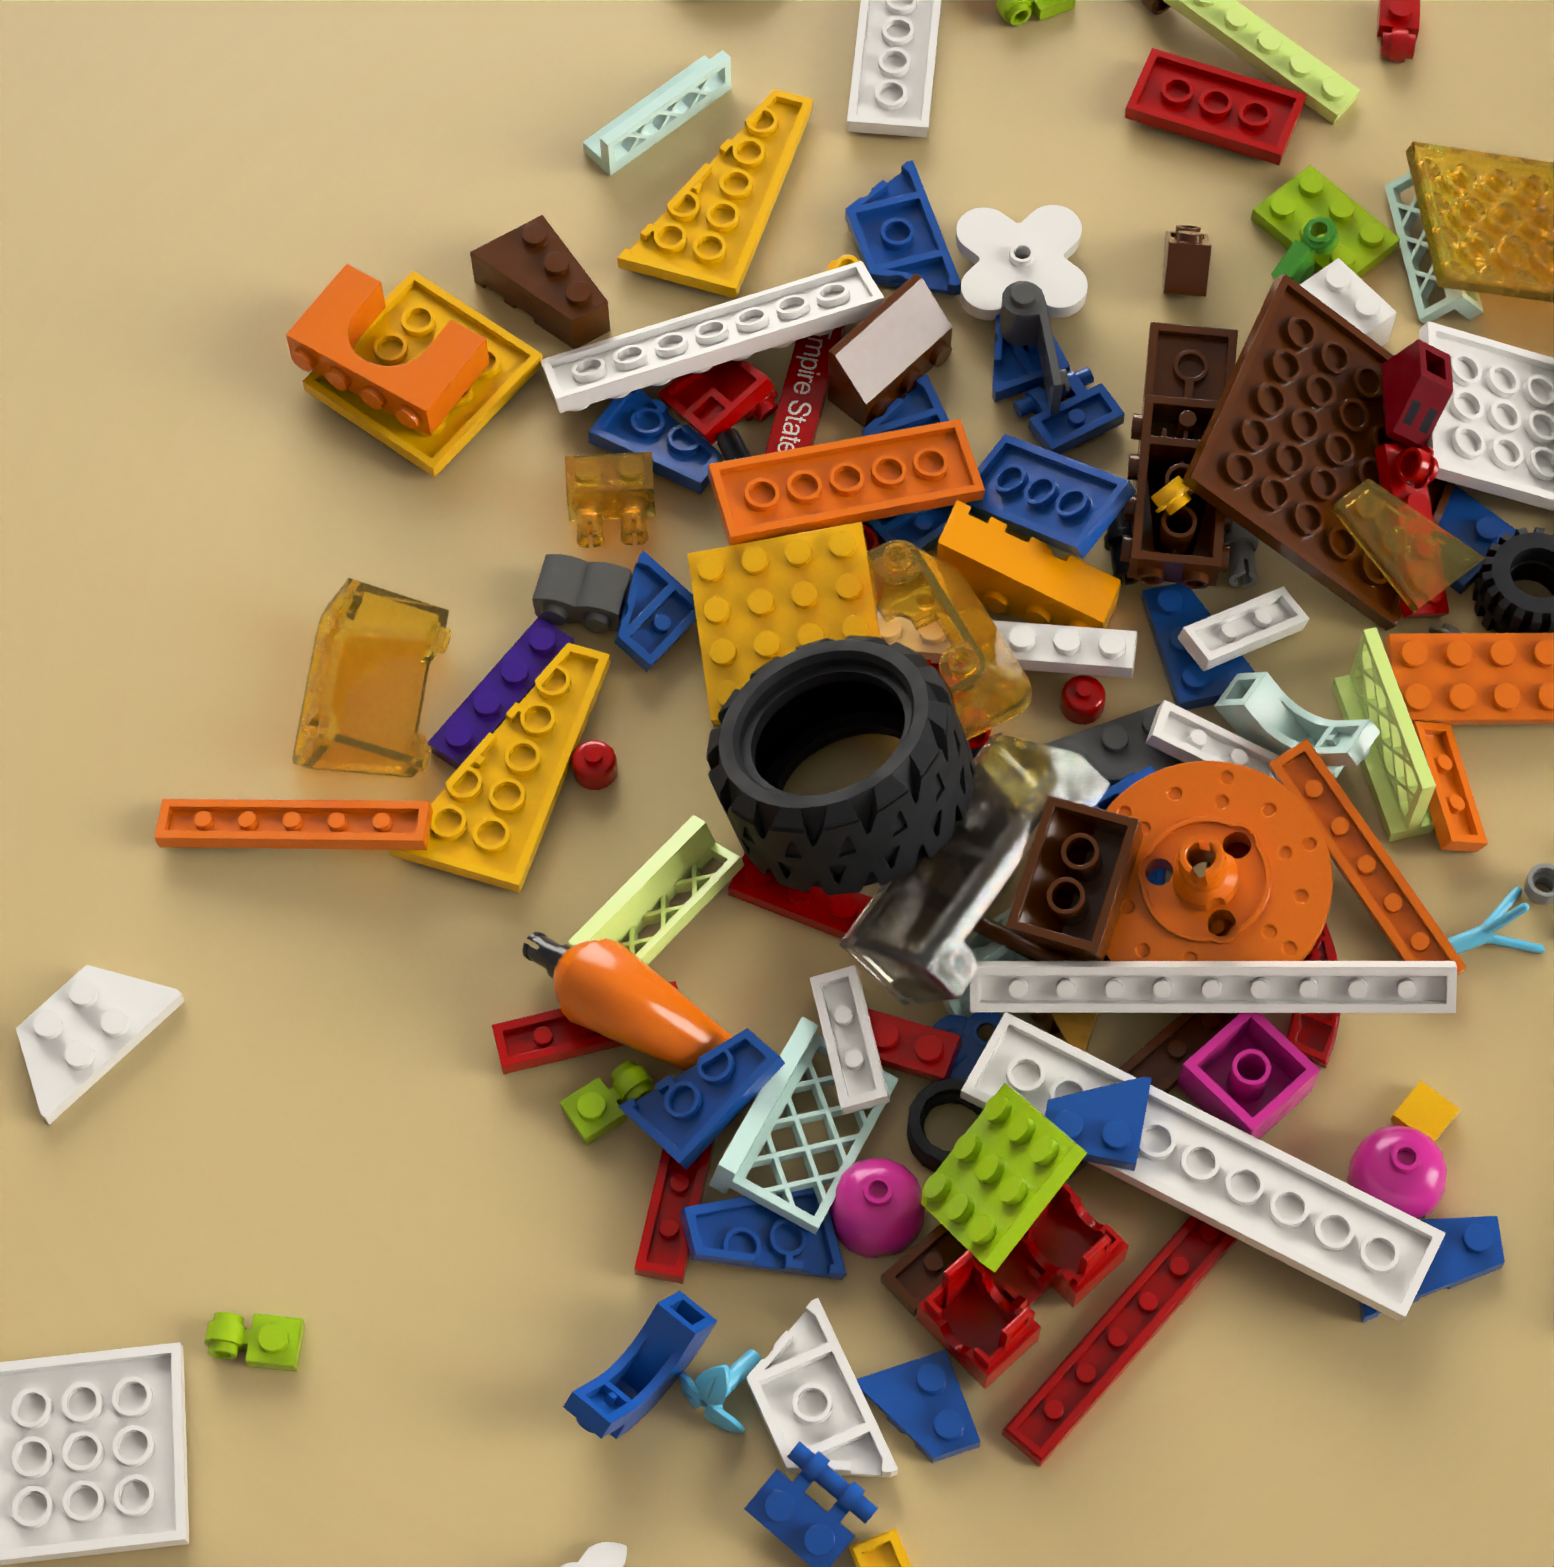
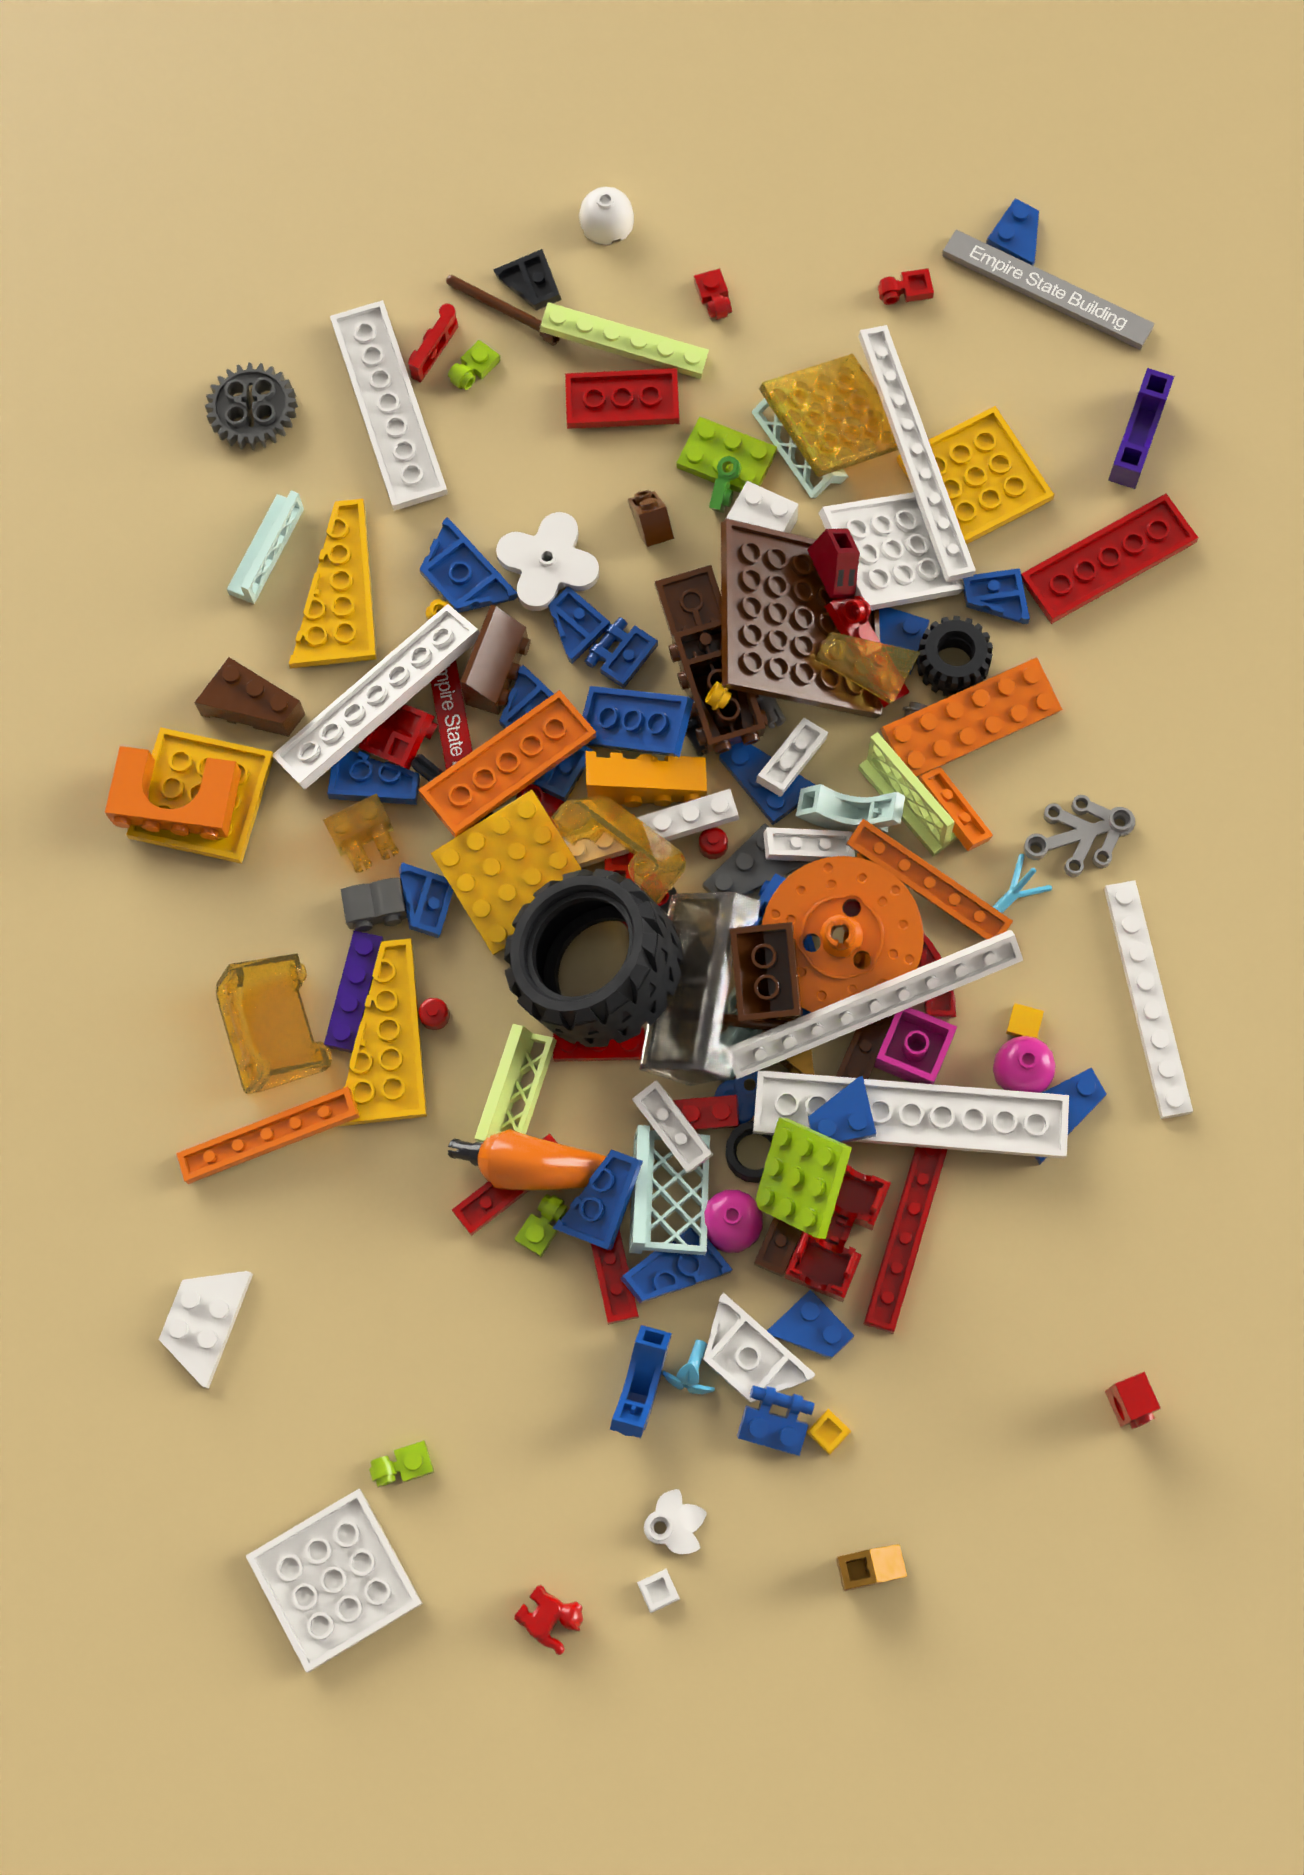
camera: 20 degrees left, 10 degrees up
(1027, 322) = (570, 604): dark grey door -> none

